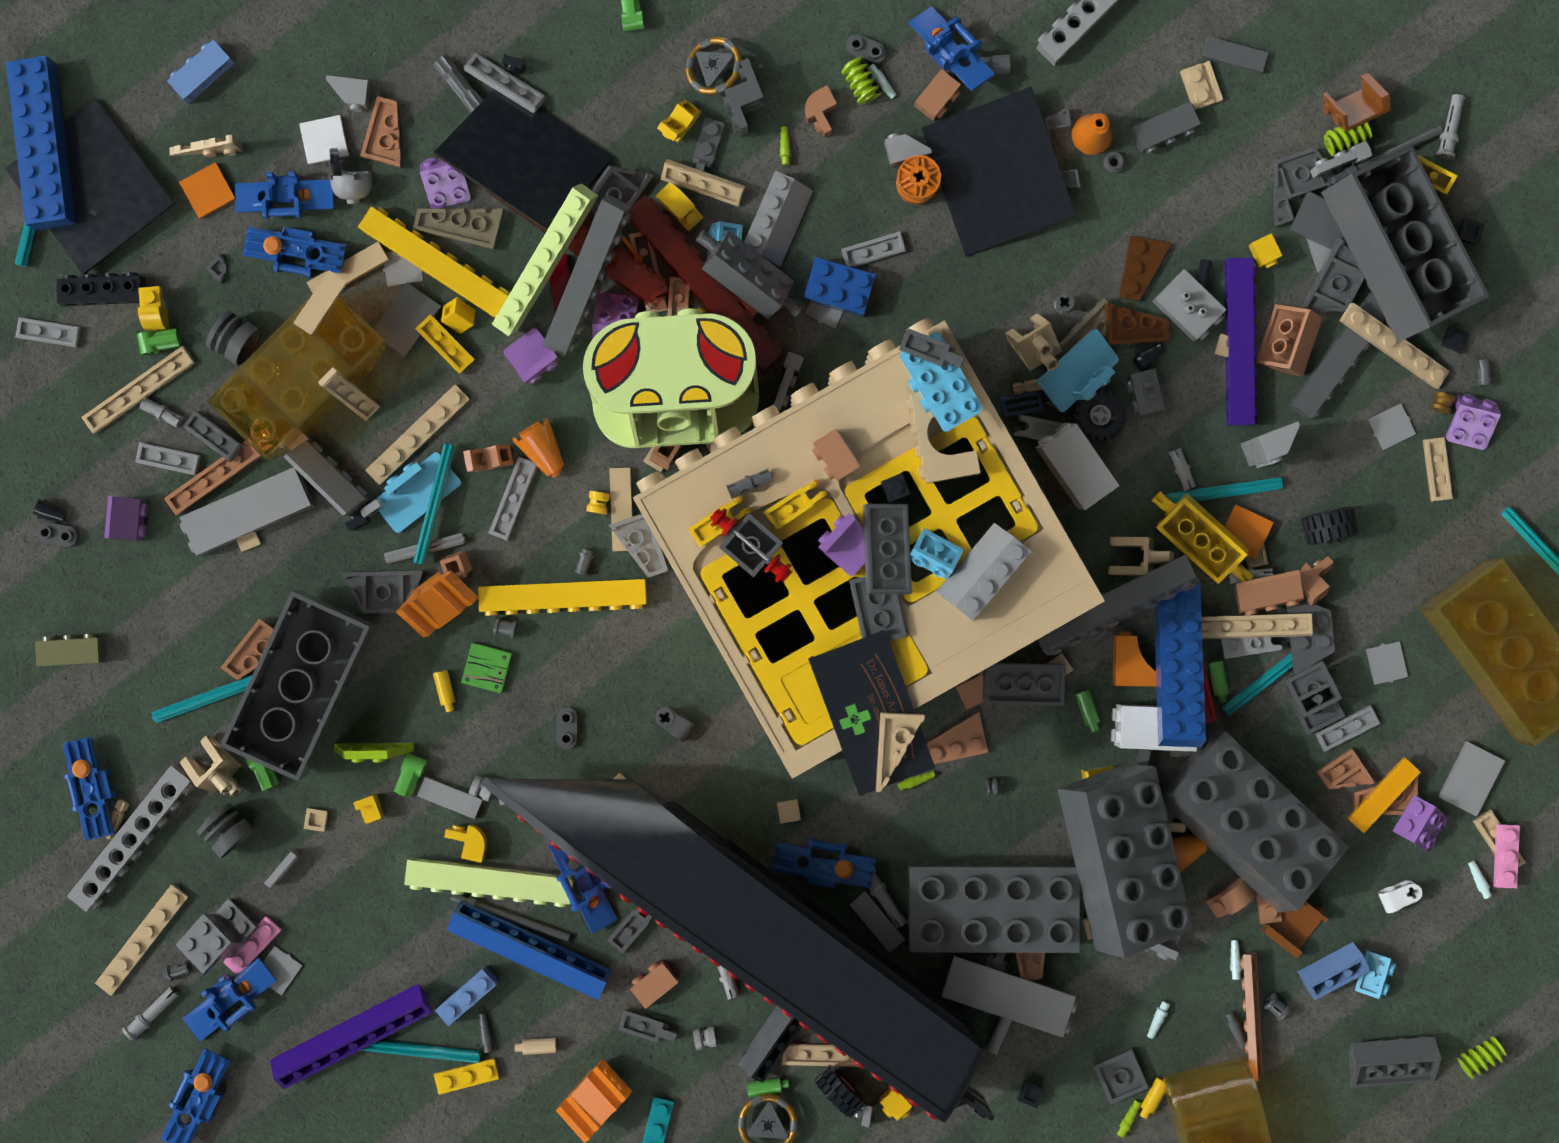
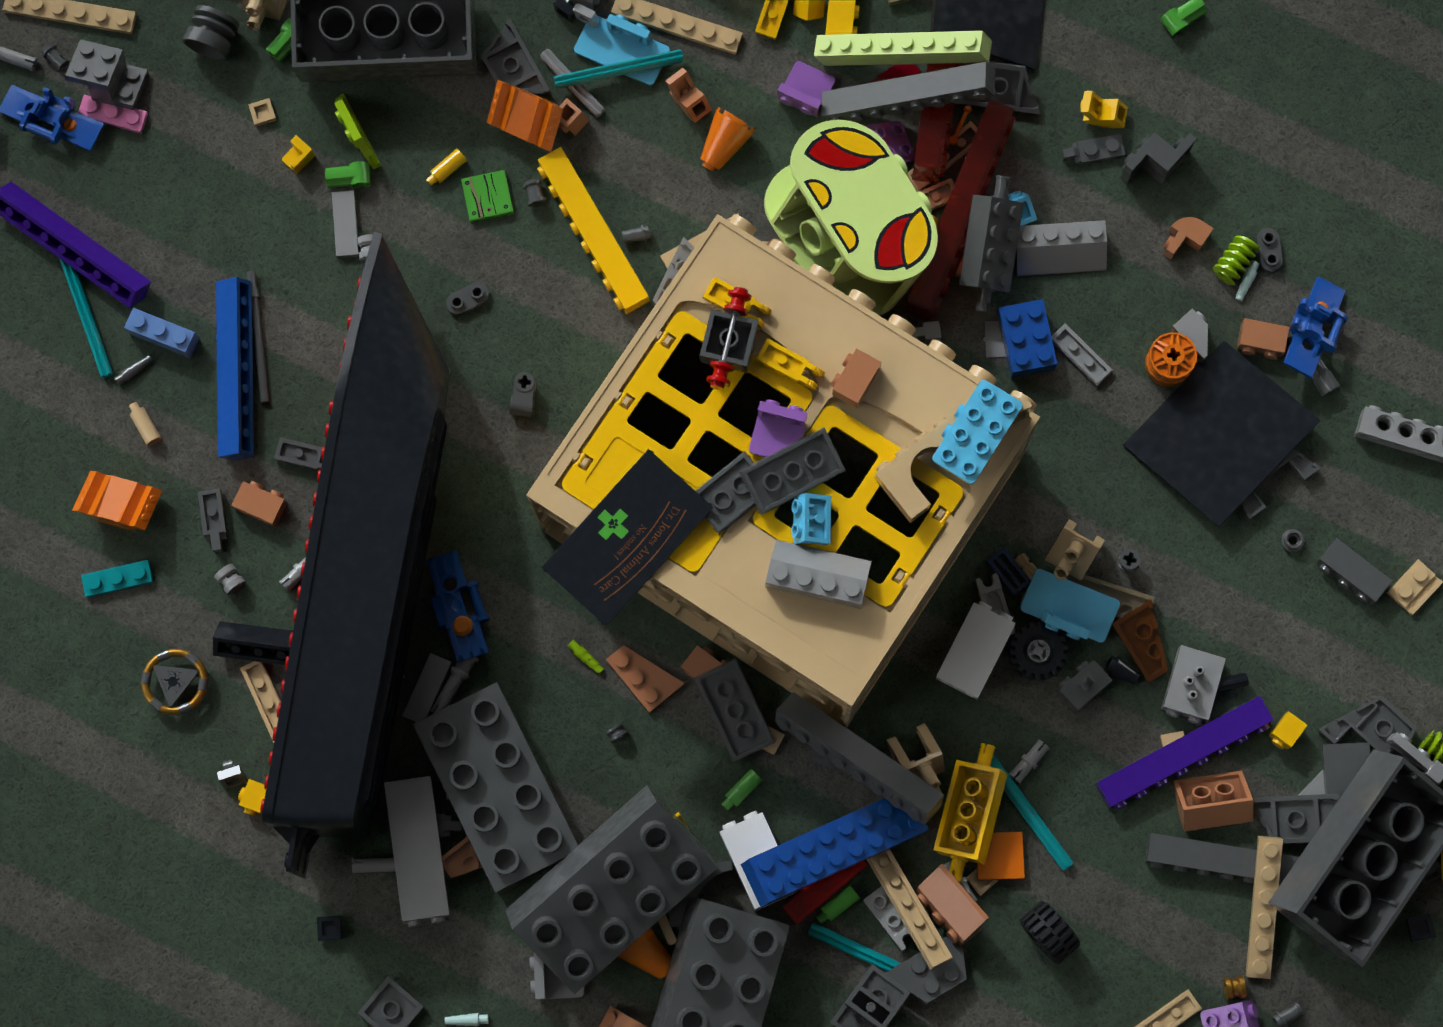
camera: 70 degrees right, 10 degrees down
(282, 869) = (200, 104): light grey tile -> none
(283, 968) = (104, 153): light grey piece -> none
(466, 1076) = (83, 373): yellow plate -> none
(474, 841) = (316, 265): yellow brick -> none
(486, 880) = (283, 300): yellowish green brick -> none
(513, 499) = (661, 140): light grey tile -> none
(594, 902) = (309, 408): blue piece -> none
(596, 507) = (694, 219): yellow wheel -> none
(679, 205) = (1022, 152): yellow brick -> none
(702, 182) = (1057, 162): tan tile -> none
(713, 65) = (1173, 115): piece -> none
(749, 483) = (787, 312): dark grey pin -> none
(771, 1085) = (213, 666): bright green cylinder -> none
(785, 152) = (1131, 223): lime animal -> none
(788, 811) = (493, 549): tan tile -> none
(840, 1091) = (241, 732): black wheel -> none
(895, 487) = (855, 450): black plate -> none
(895, 734) = (615, 568): tan wing -> none
(929, 349) = (1001, 401): dark grey hinge -> none
(1092, 133) = (1309, 505): orange cone -> none
(1128, 663) = (808, 805): orange arch -> none
(1140, 265) = (1208, 618): reddish brown wing -> none
(1270, 446) = (1098, 825): light grey slope -> none
(1313, 585) = (985, 944): nougat brick -> none
(1391, 426) = (1183, 950): light grey piece -> none
(1455, 339) = (1304, 969): black plate -> none

